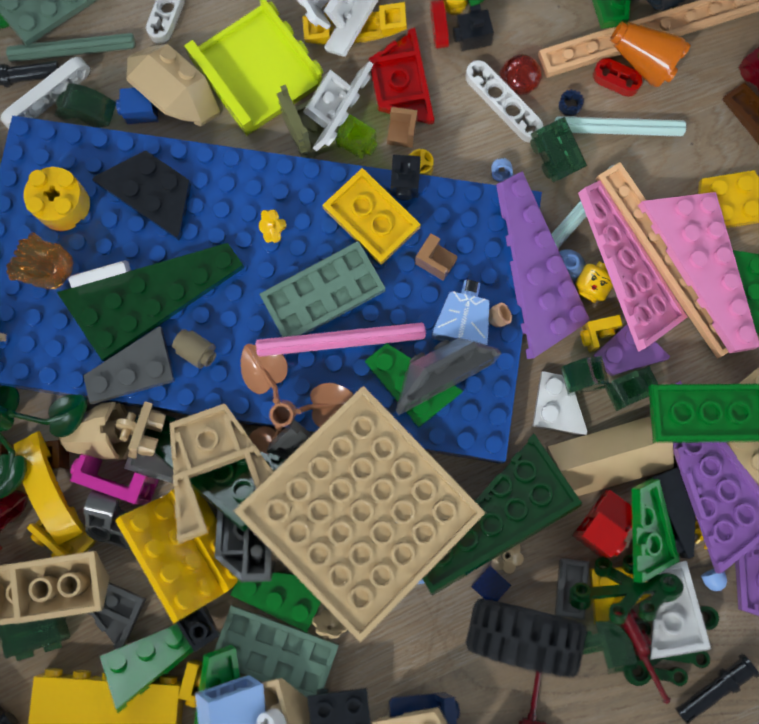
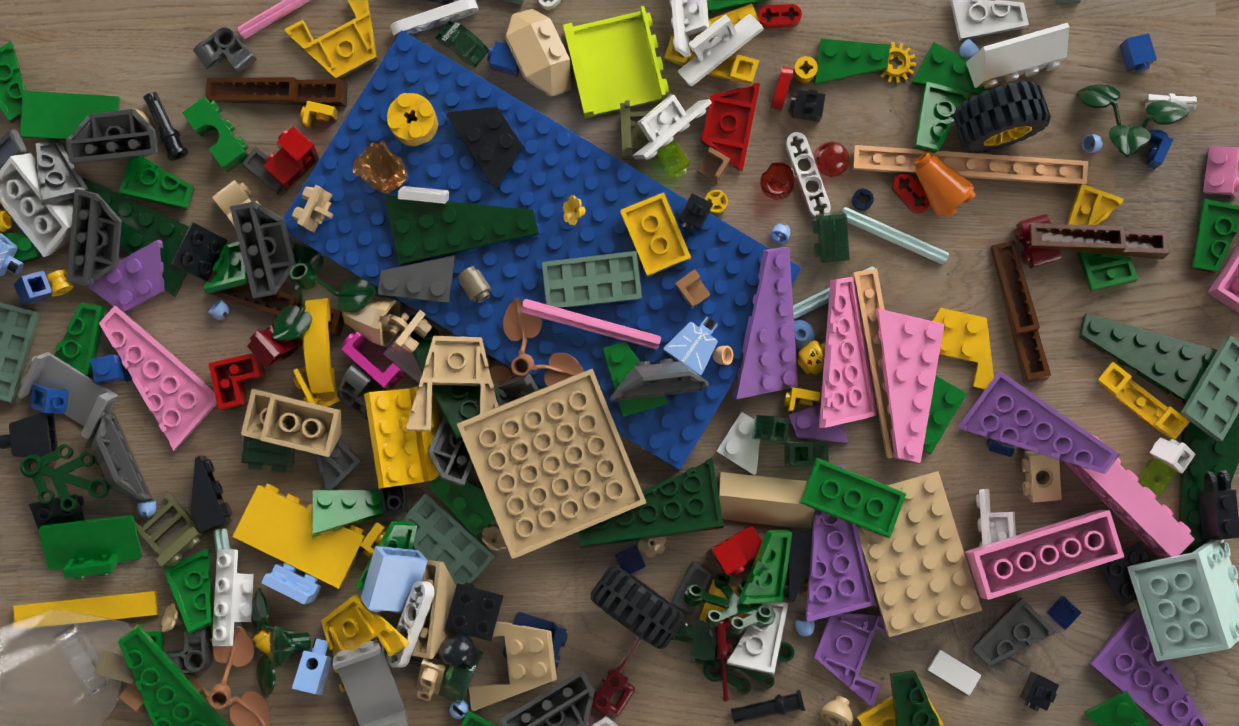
camera: 25 degrees right, 5 degrees up
(476, 116) = (778, 181): none -> clear red hair

